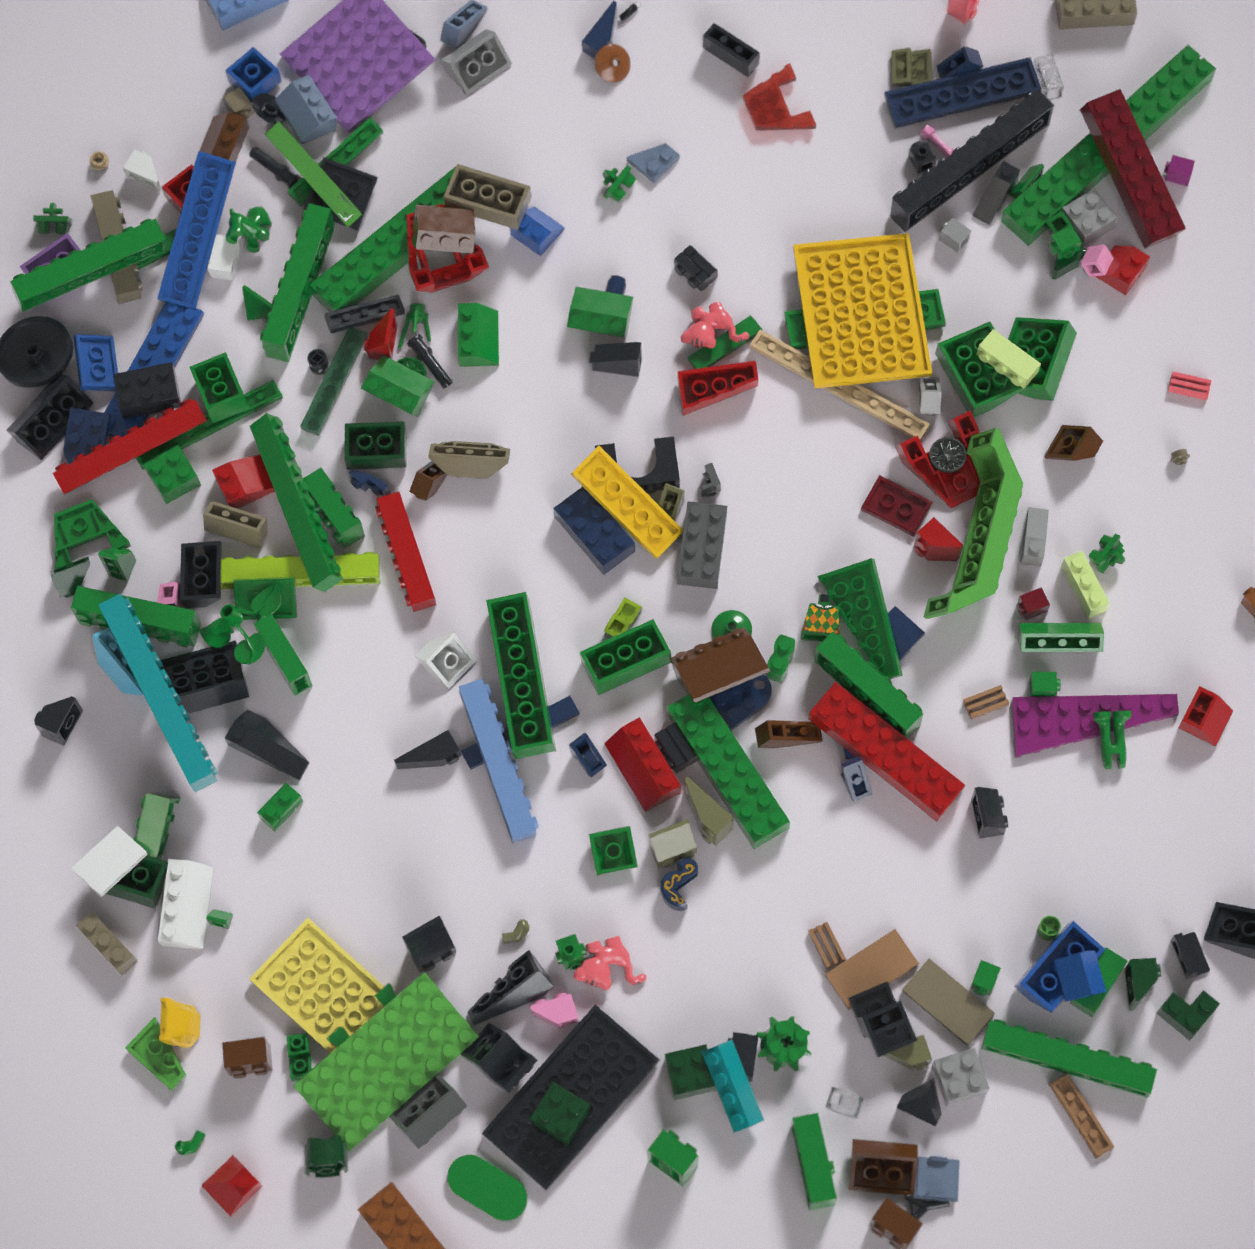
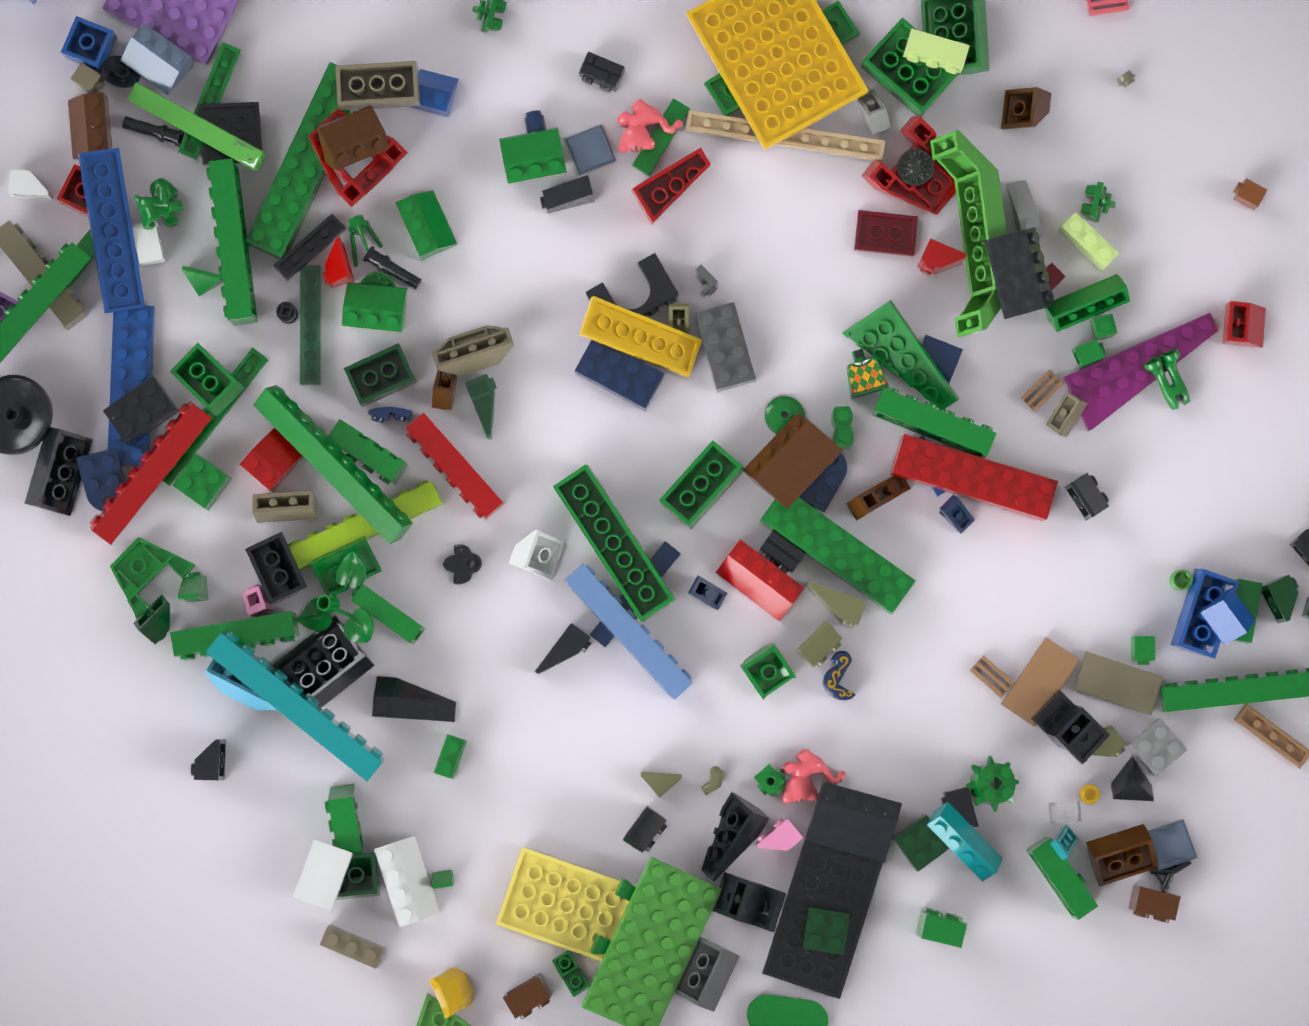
camera: 25 degrees left, 15 degrees up
(95, 362) = (77, 400): blue tile -> none
(370, 641) = (459, 564): none -> black plate
(459, 506) = (483, 398): none -> clear green slope
(466, 911) = (660, 781): none -> olive slope
(623, 617) = (681, 447): lime slope -> none
(633, 1022) = (853, 821): none -> black slope
(656, 331) = (590, 149): none -> sand blue piece
(830, 1125) = (1064, 842): none -> teal tile
(876, 1096) = (1089, 794): none -> yellow plate
(1000, 731) = (1066, 414): none -> dark tan slope
(1005, 578) = (1019, 272): none -> black slope
(1068, 666) = (1103, 327): none -> green brick

